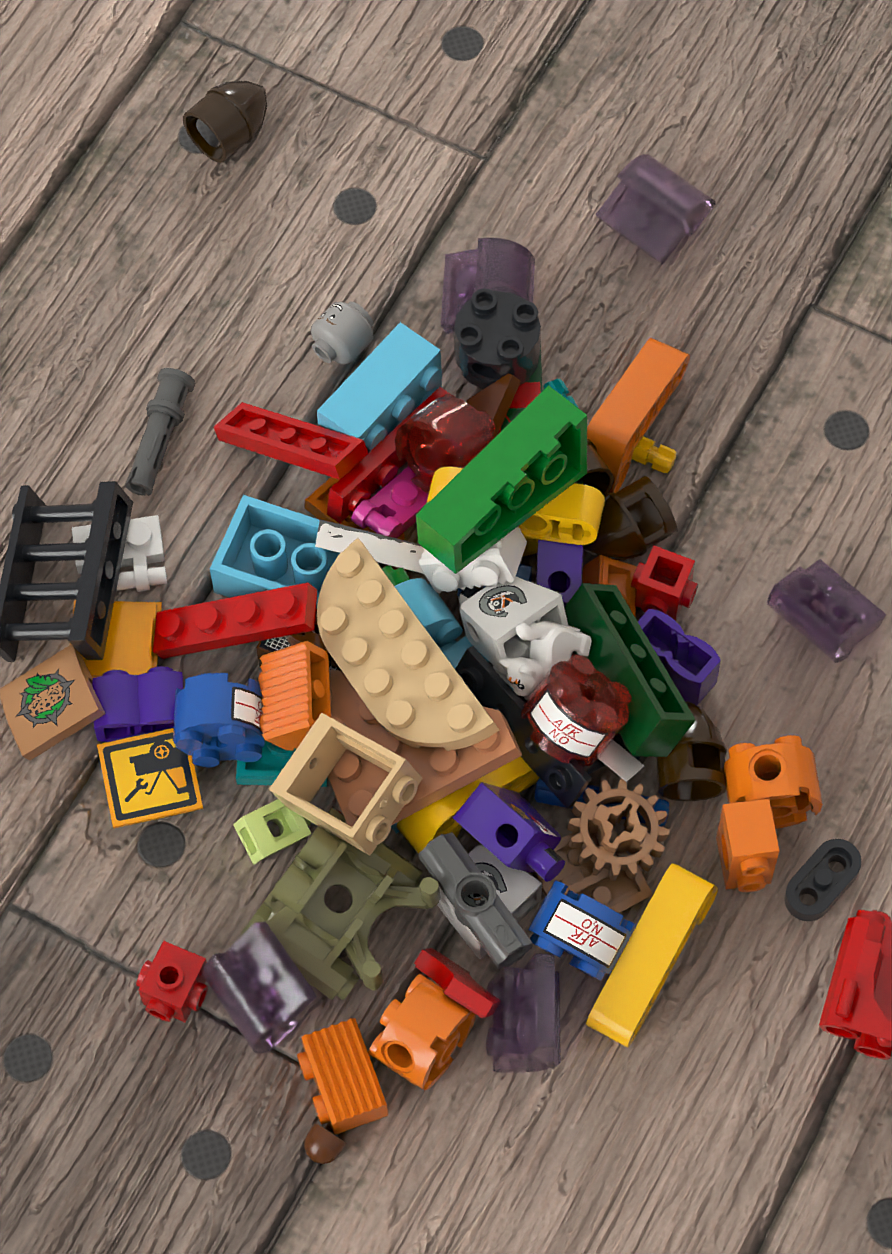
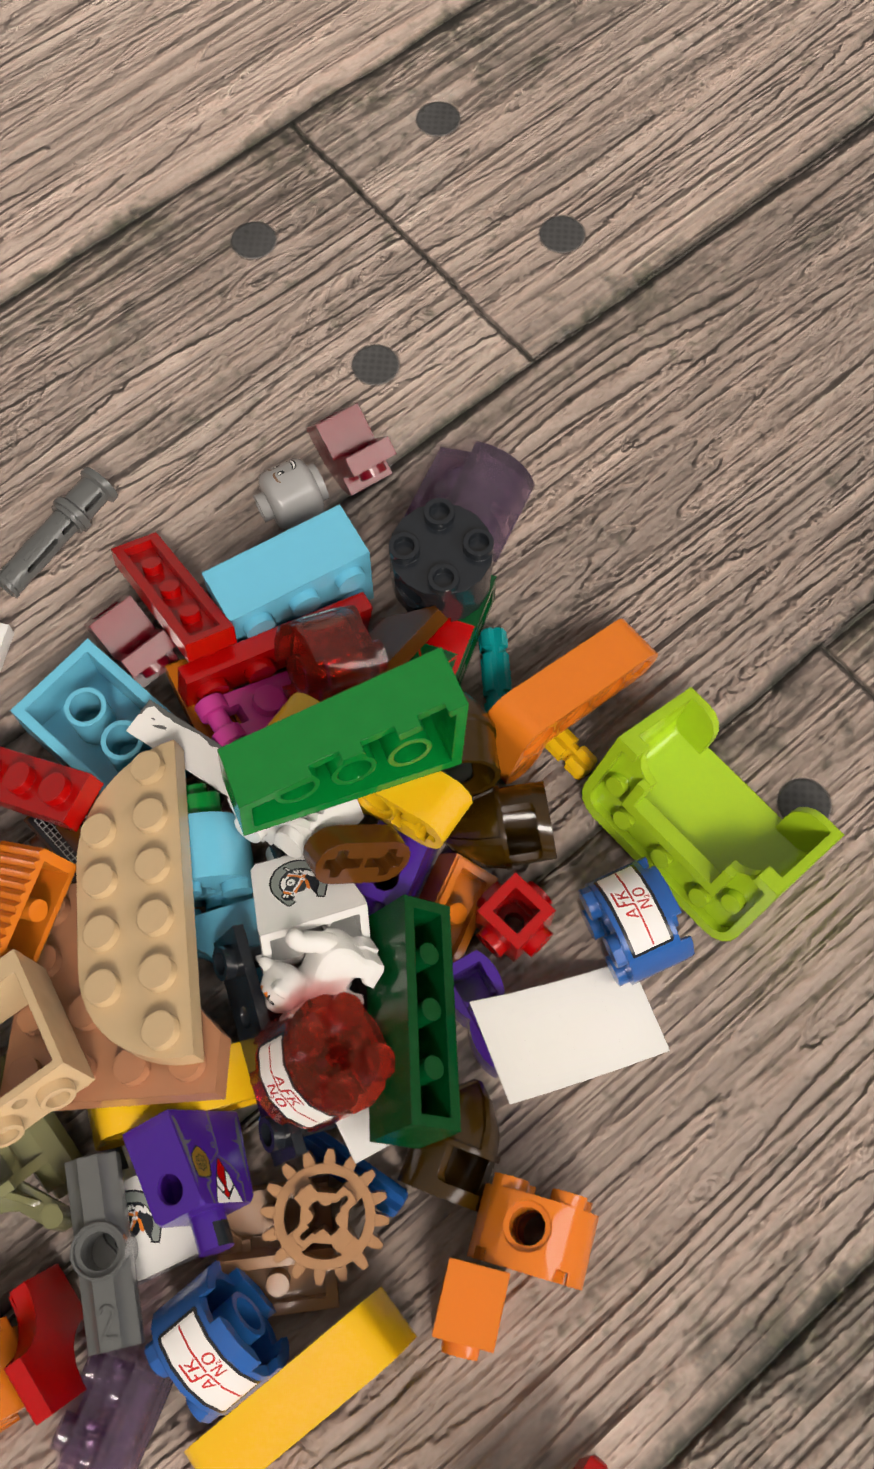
camera: 20 degrees right, 5 degrees up
(232, 113) = (281, 227): dark brown helmet -> none
(267, 482) = (132, 640): none -> brick
(372, 281) = (351, 449): none -> brick
(537, 564) = (356, 853): none -> reddish brown beam
(654, 207) = (688, 472): clear purple brick -> none
(740, 642) = (567, 1032): none -> white sticker
(754, 551) = (637, 921): none -> brick
(771, 470) = (699, 821): none -> lime windscreen
(820, 881) = (551, 1381): black plate -> none
(825, 609) = (692, 1021): clear purple brick -> none

